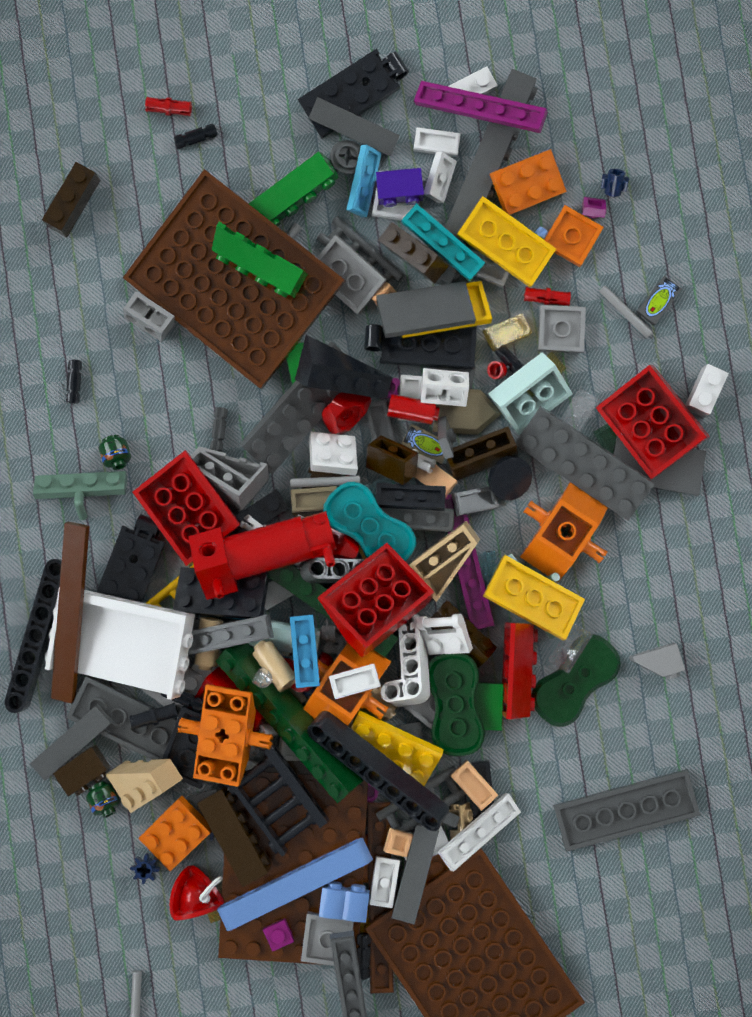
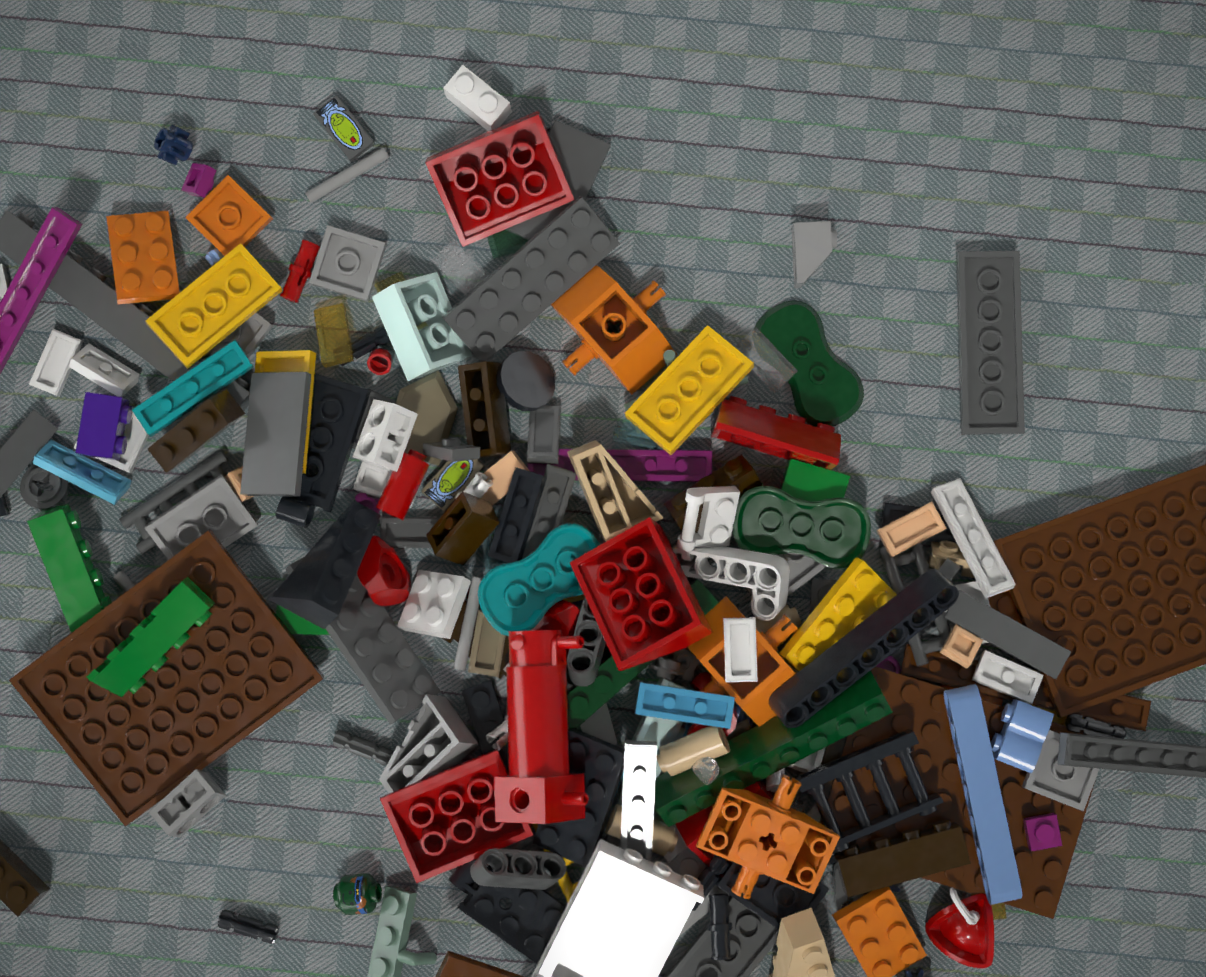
camera: 75 degrees left, 0 degrees up
(166, 568) = (506, 875): none -> dark grey beam

